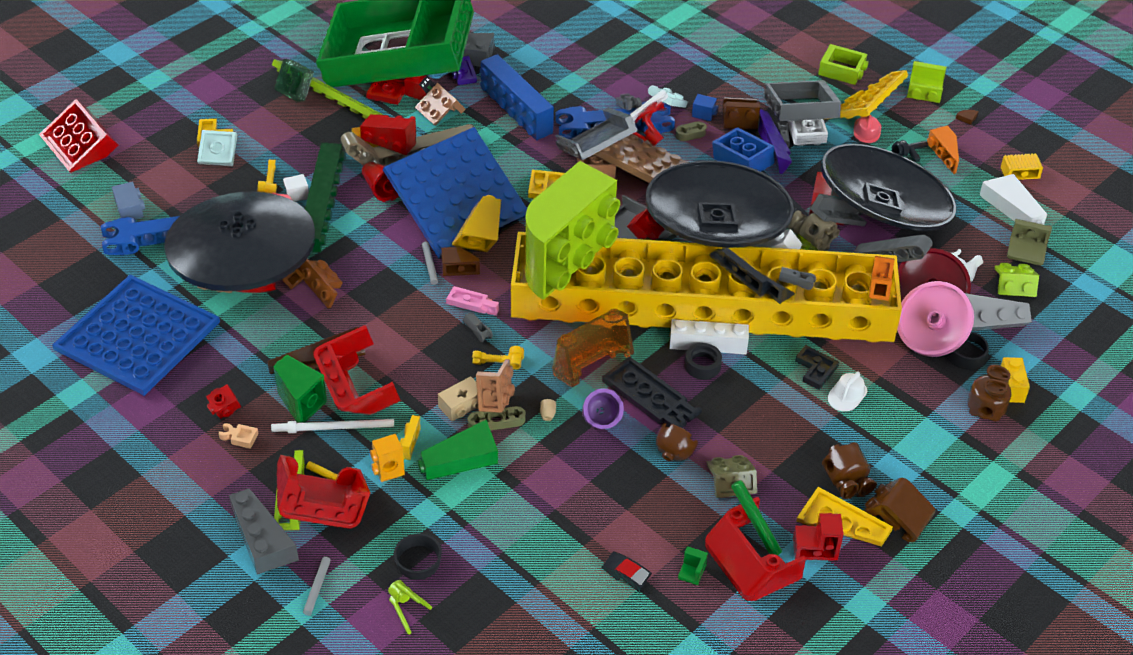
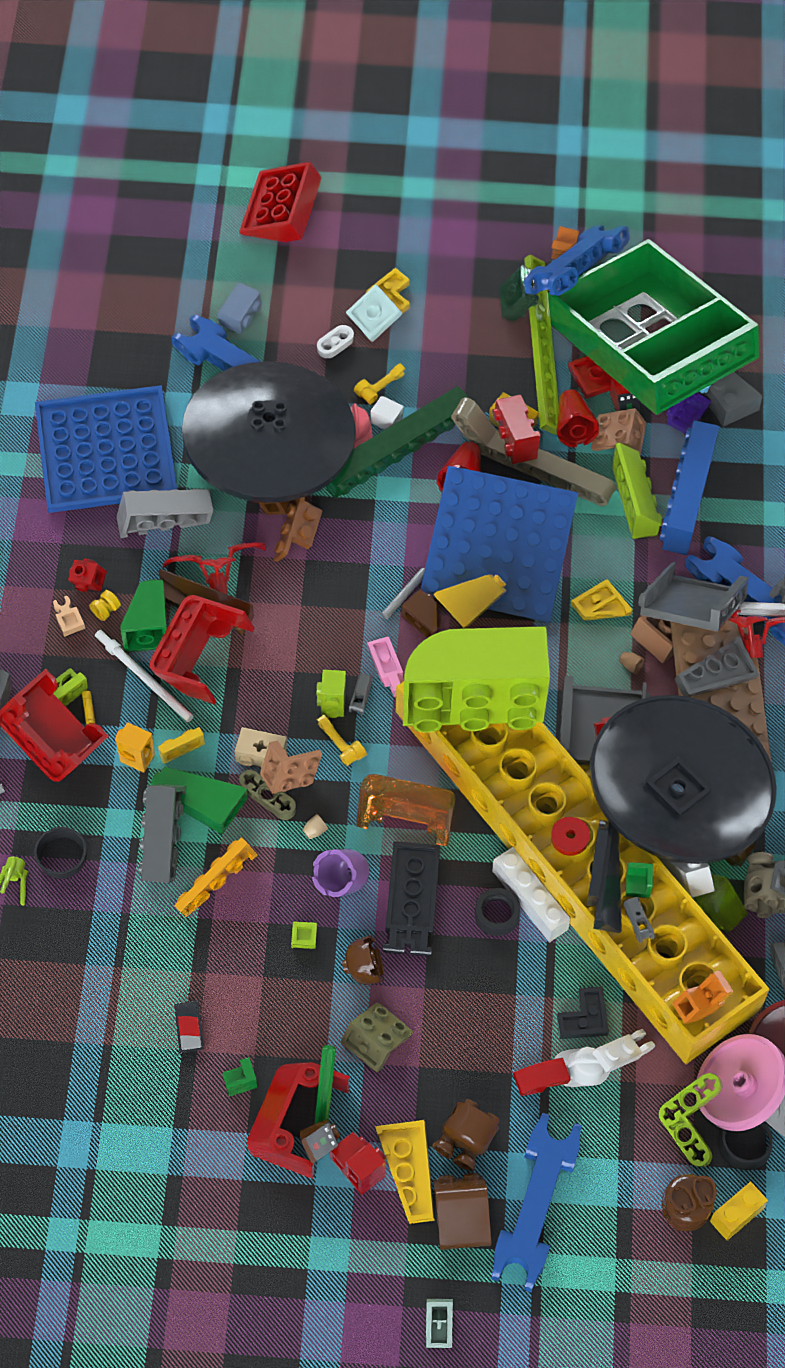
camera: 50 degrees right, 15 degrees up
(212, 178) = (334, 342): none -> white plate
(223, 333) = (163, 510): none -> light grey wedge
(256, 409) = (104, 605): none -> yellow wheel
(286, 43) = (564, 241): none -> orange brick
(311, 337) = (217, 580): none -> red plant
(312, 42) = (564, 271): none -> blue piece
(410, 107) = (575, 420): none -> red cone
(466, 333) = (332, 693): none -> lime brick
(471, 482) = (161, 832): none -> dark grey wedge
(489, 122) = (635, 492): none -> lime slope
(531, 487) = (215, 878): none -> light orange wing
(621, 465) = (304, 935): none -> lime plate
(655, 154) = (718, 670): none -> dark grey wing
(707, 272) = (572, 826): none -> red piece
(772, 258) = (639, 880): none -> green panel
(787, 544) = (319, 1139): none -> slope
(839, 412) = (541, 1075): none -> red slope
(860, 361) = (622, 1051): none -> white hinge
(930, 367) = (681, 1119): none -> lime beam
(944, 492) = (523, 1244): none -> blue piece
(968, 572) = (439, 1323): none -> sand green slope

